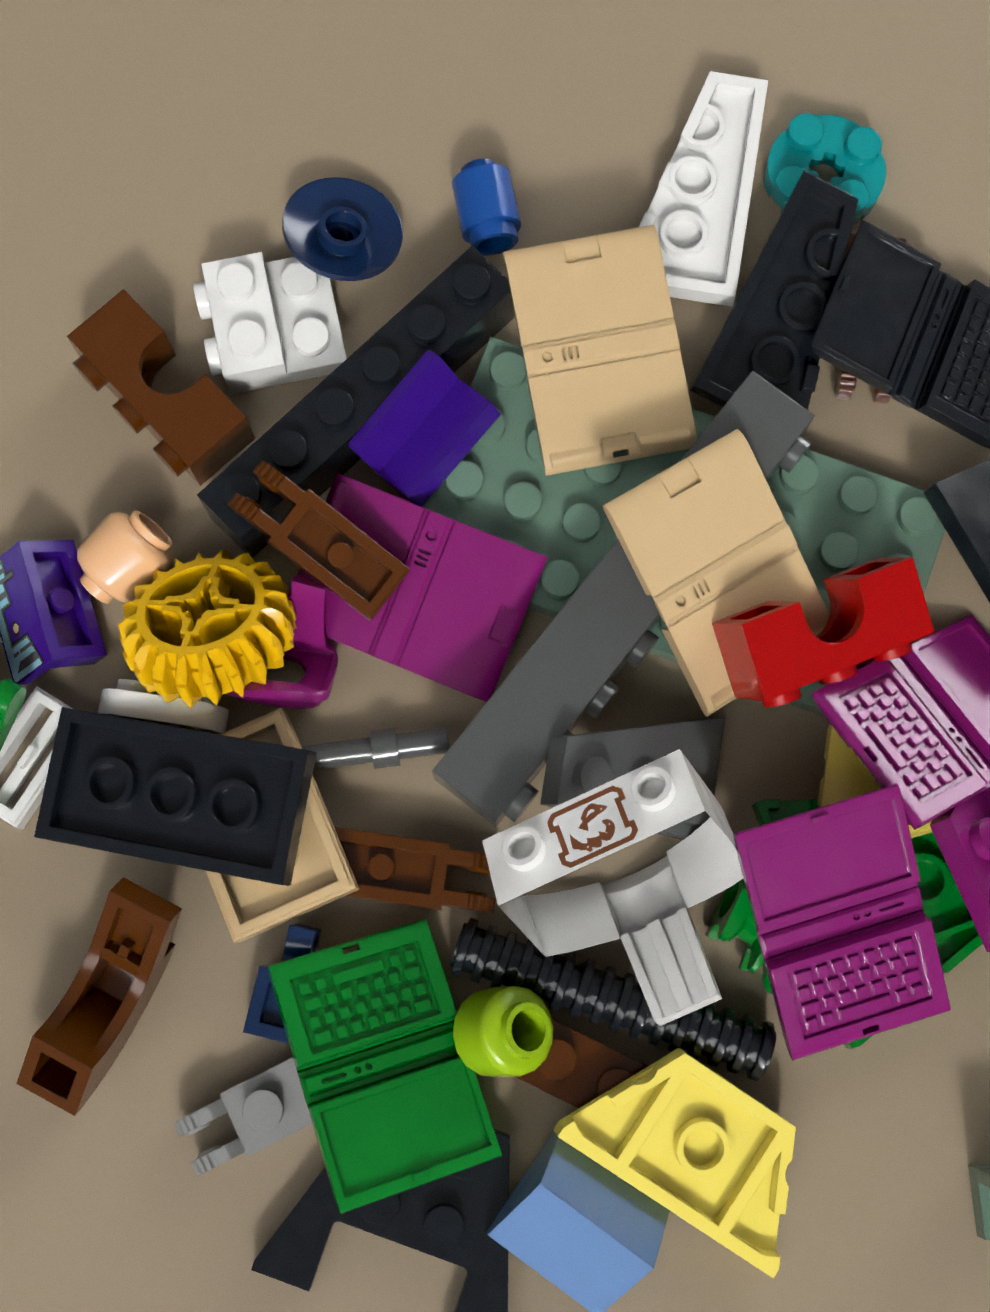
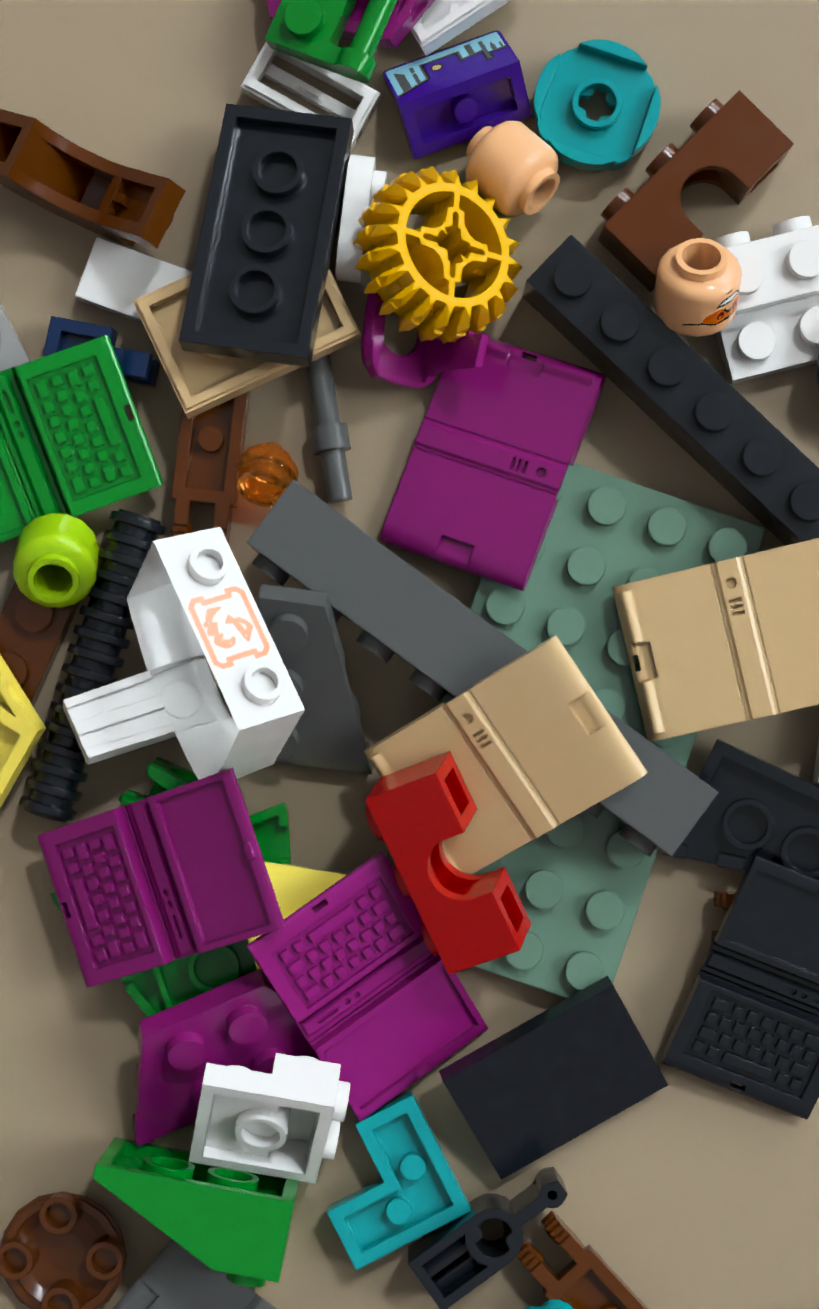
camera: 90 degrees right, 10 degrees up
(55, 447) = (628, 89): none -> teal plate
(206, 956) = (120, 275): none -> white tile
(258, 376) = (697, 287): none -> light nougat head
(325, 544) = (521, 364): reddish brown hinge -> none
(419, 810) = (265, 473): none -> clear orange plate
(423, 429) = (654, 461): dark purple panel -> none

